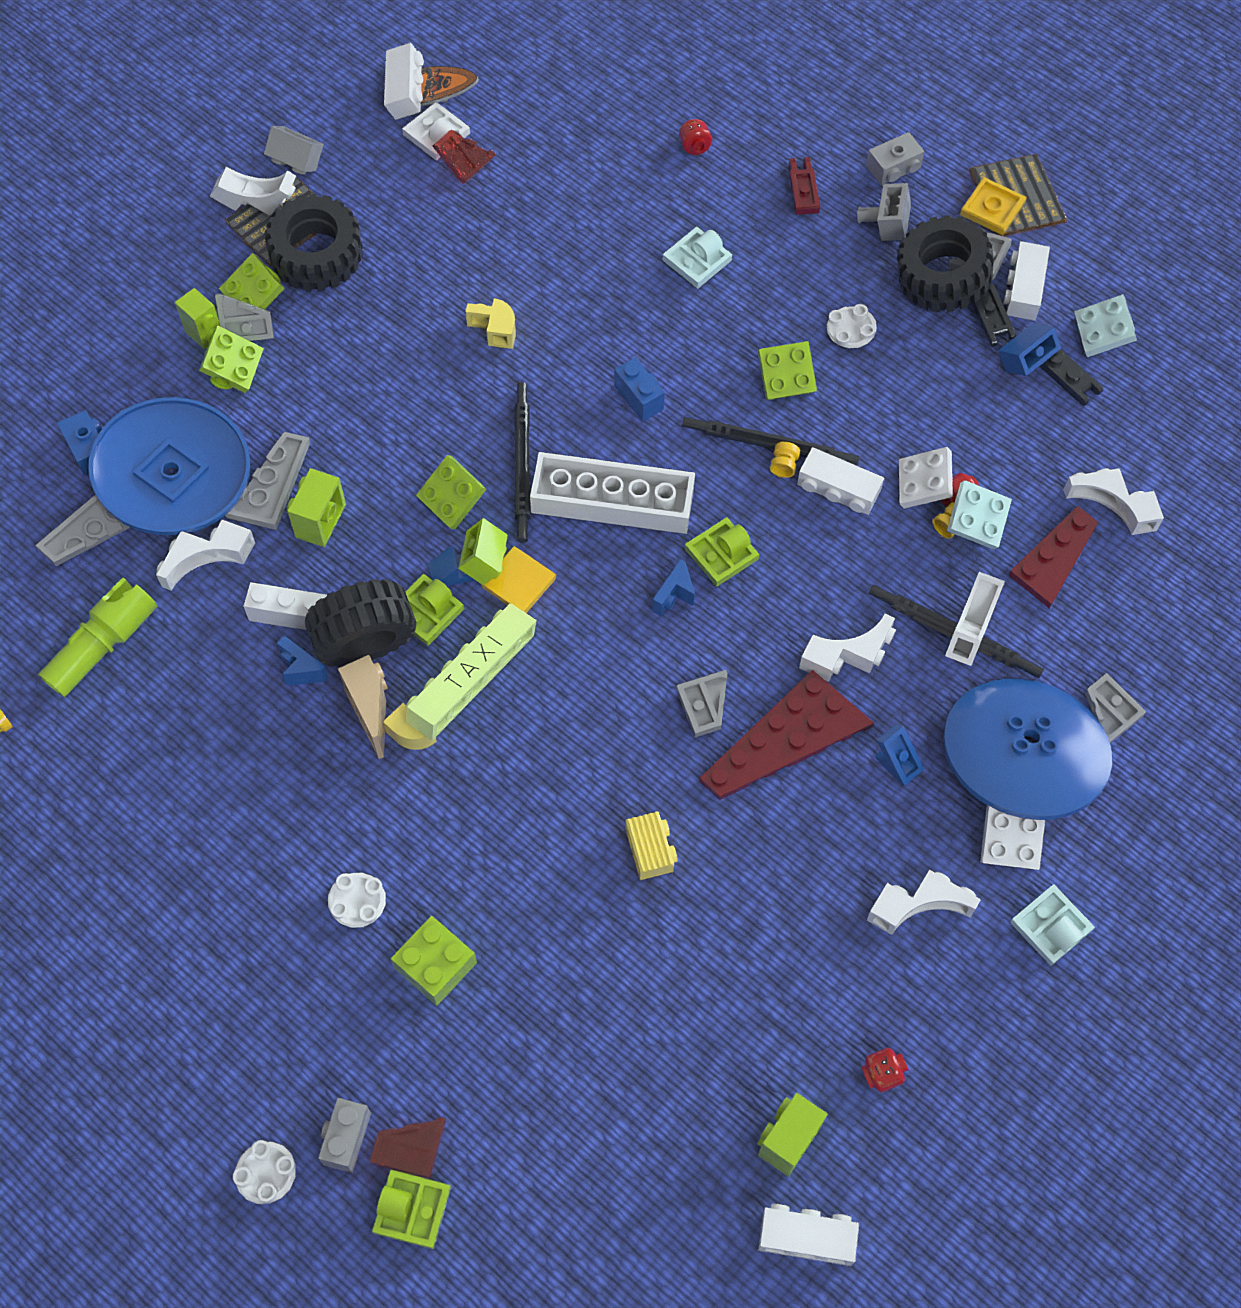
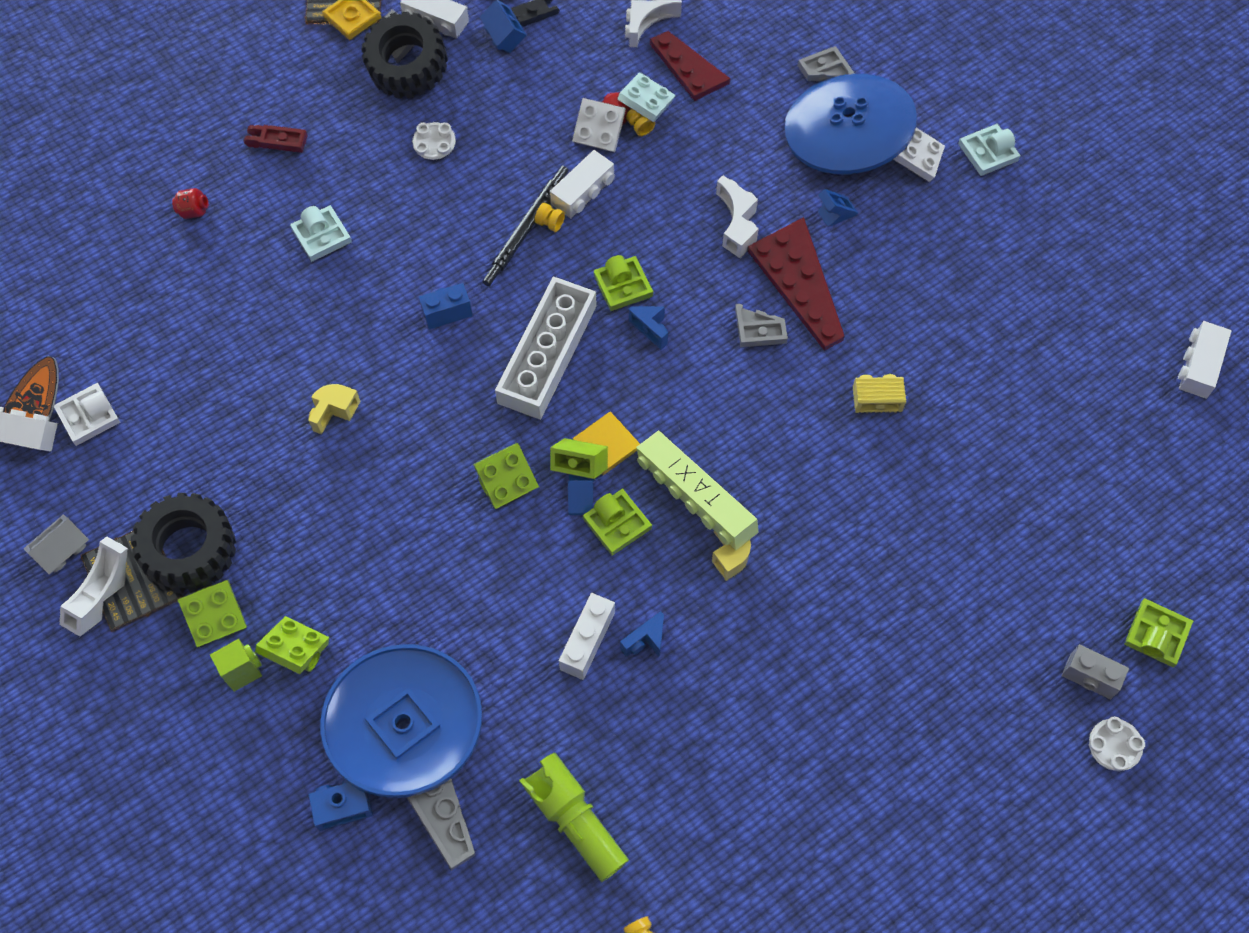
camera: 75 degrees left, 0 degrees up
(188, 552) = (500, 682): white arch -> none
(244, 319) = (249, 624): light grey wing -> none
(272, 483) = (444, 630): light grey wing -> none
(316, 507) = (491, 590): lime brick -> none
(356, 899) = (884, 629): white dish -> none
(360, 622) = (637, 564): black tyre -> none
(365, 690) = (705, 579): tan slope -> none
(409, 1148) = (1107, 624): clear red wing -> none
(434, 960) = (953, 574): lime brick -> none
(462, 155) = (130, 394): clear red wing -> none
(522, 496) = (486, 415): black axle -> none
(787, 370) = (464, 193): lime plate -> none
(795, 1129) = (1134, 346): lime brick -> none
(884, 1069) = (1086, 279): red head -> none
(891, 214) = (334, 81): light grey brick -> none
(895, 158) = (277, 66): light grey brick -> none
(934, 893) = (959, 241): white arch -> none
(948, 627) = (735, 145): black axle -> none
(974, 619) = (731, 124): white arch -> none
(993, 316) = (464, 43): black hinge -> none

